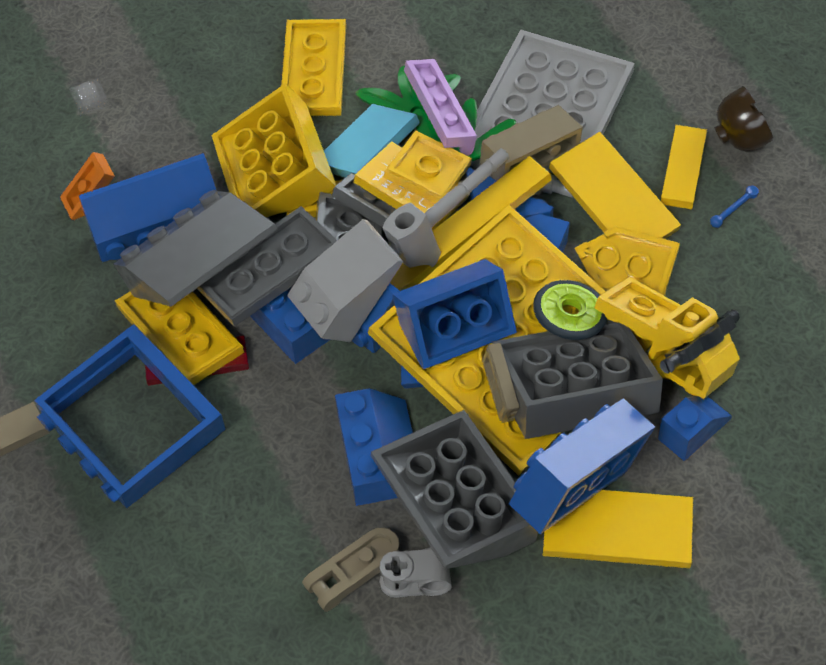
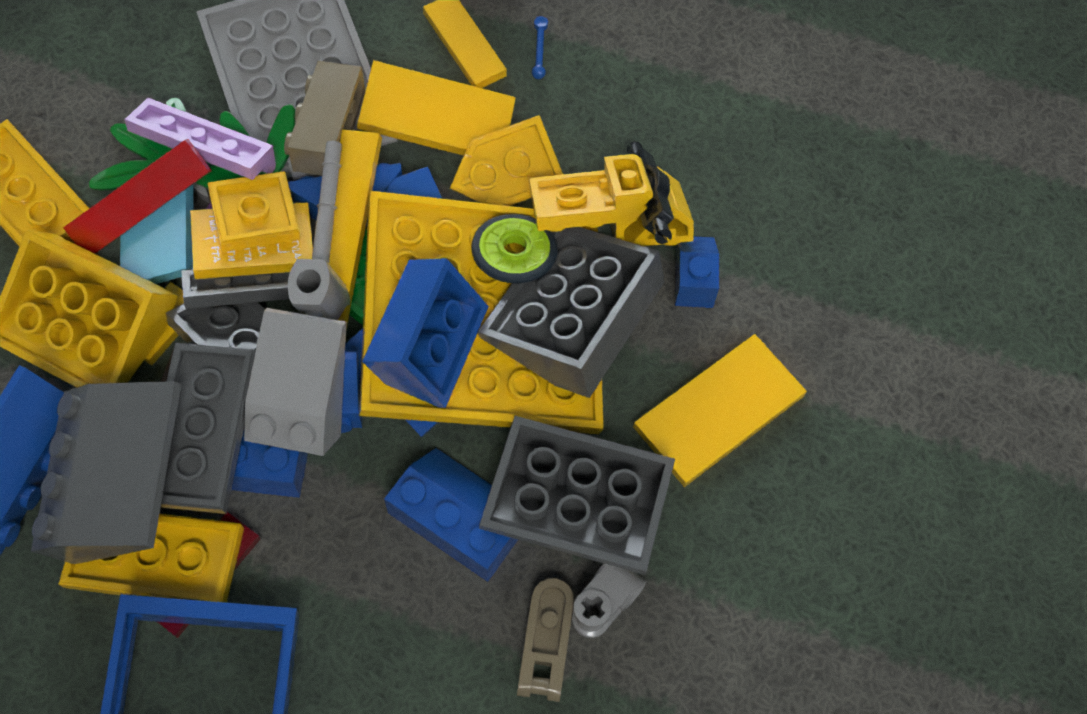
camera: 50 degrees left, 10 degrees up
(370, 113) = (138, 198): none -> red tile
(500, 383) = (523, 364): dark tan tile -> none
(580, 464) = (666, 384): blue brick -> none

